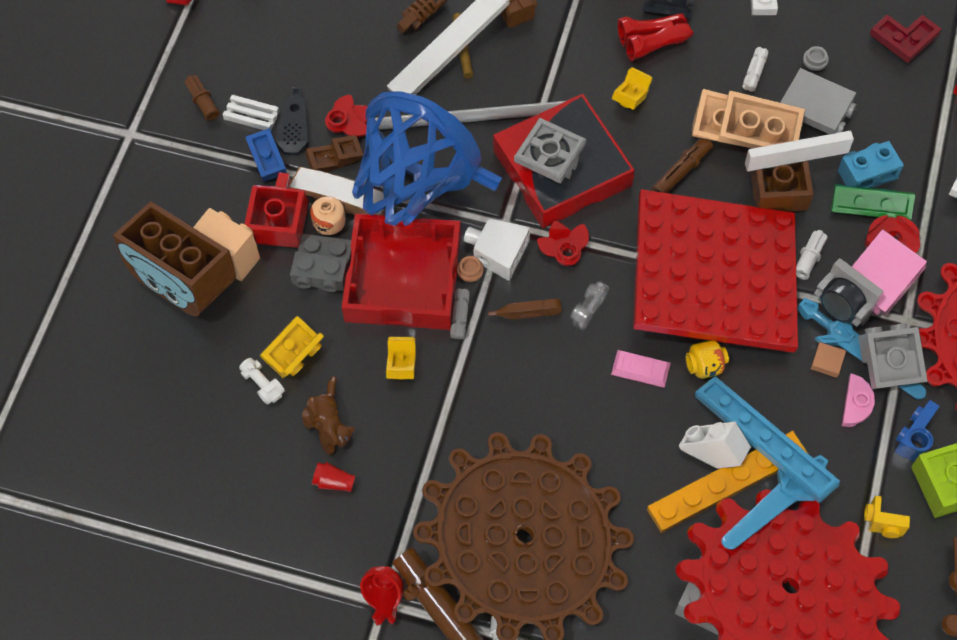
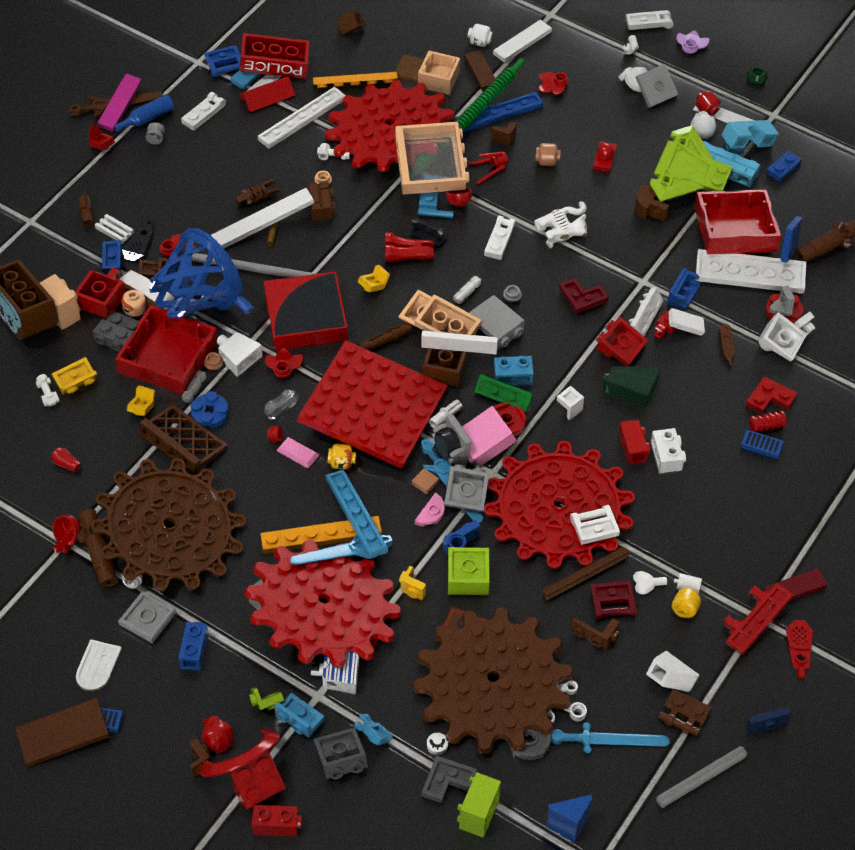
camera: 15 degrees right, 10 degrees down
(322, 414) = (75, 421): reddish brown animal -> none
(468, 413) = (172, 446): none -> reddish brown fence
(500, 356) = (210, 401): none -> blue plate
(529, 309) = (241, 396): reddish brown piece -> none
(548, 152) = (291, 298): light grey piece -> none
(600, 351) = (275, 434): none -> red plate
(716, 444) = (322, 508): white slope -> none

